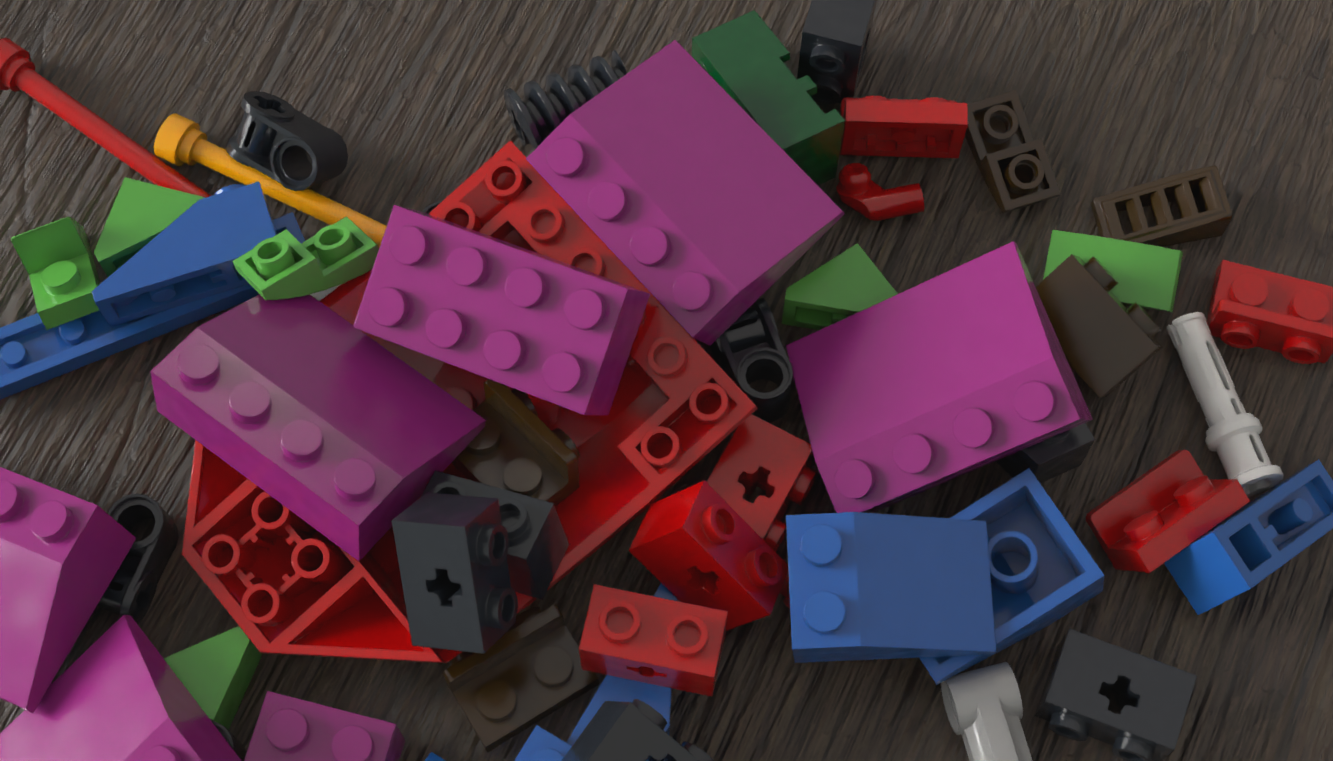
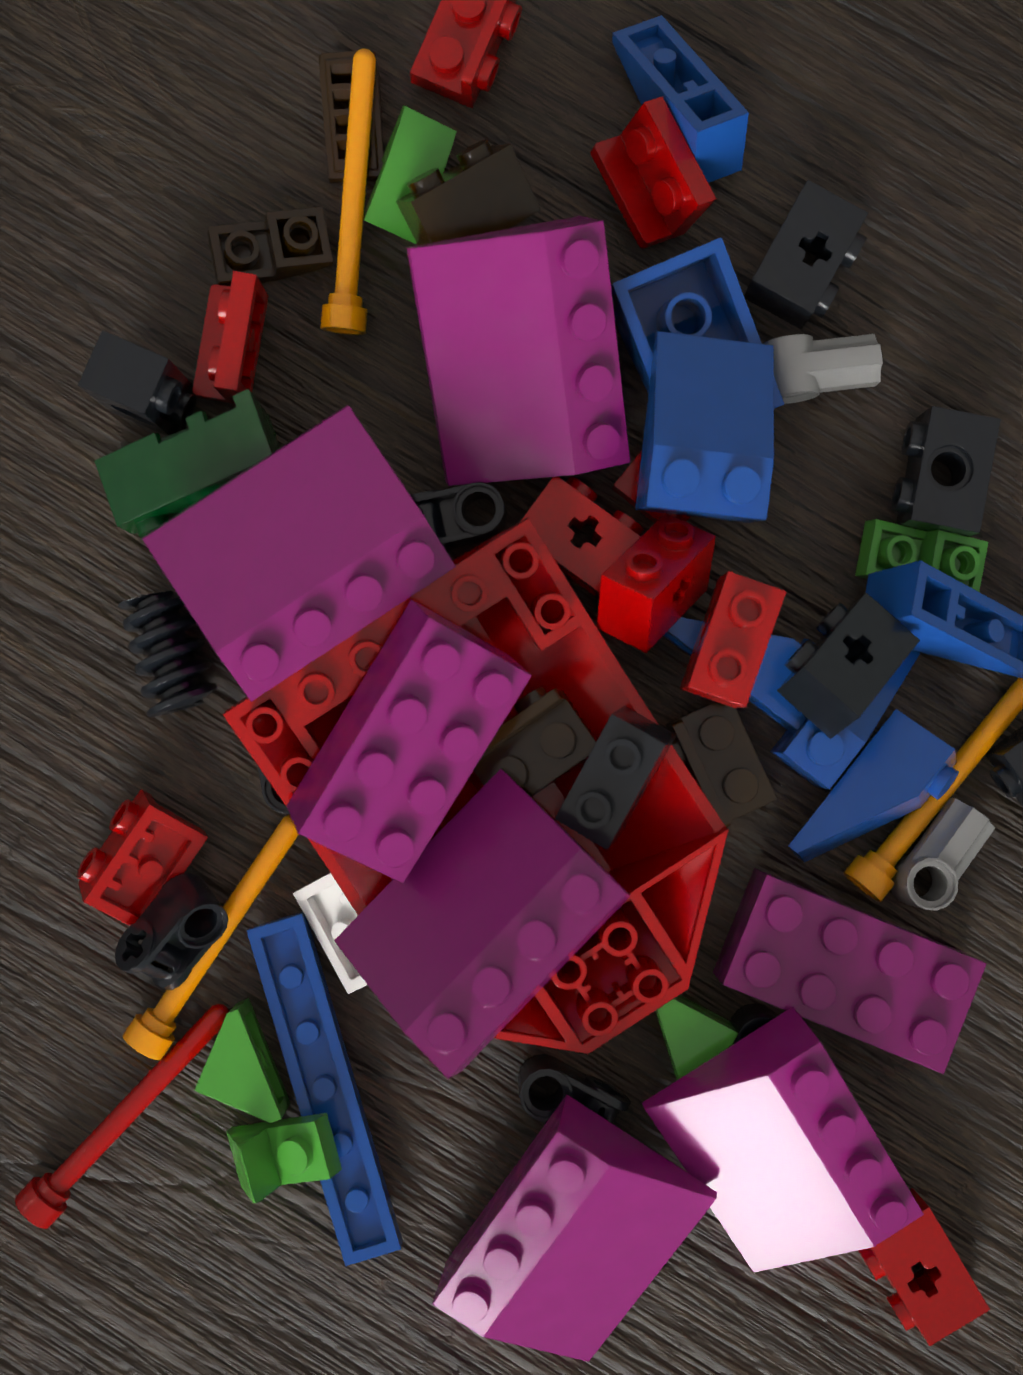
camera: 85 degrees left, 20 degrees up
(189, 256) = (286, 1017): blue slope -> none
(291, 269) = (328, 933): bright green slope -> none
(365, 113) = (137, 858): none -> red bracket
(455, 572) = (668, 809): black brick -> none
(836, 291) = (402, 423): bright green slope -> none
(872, 200) = (303, 383): red arm -> none
(958, 227) = (344, 307): none -> light orange piece
(1230, 429) = (576, 102): white pin -> none

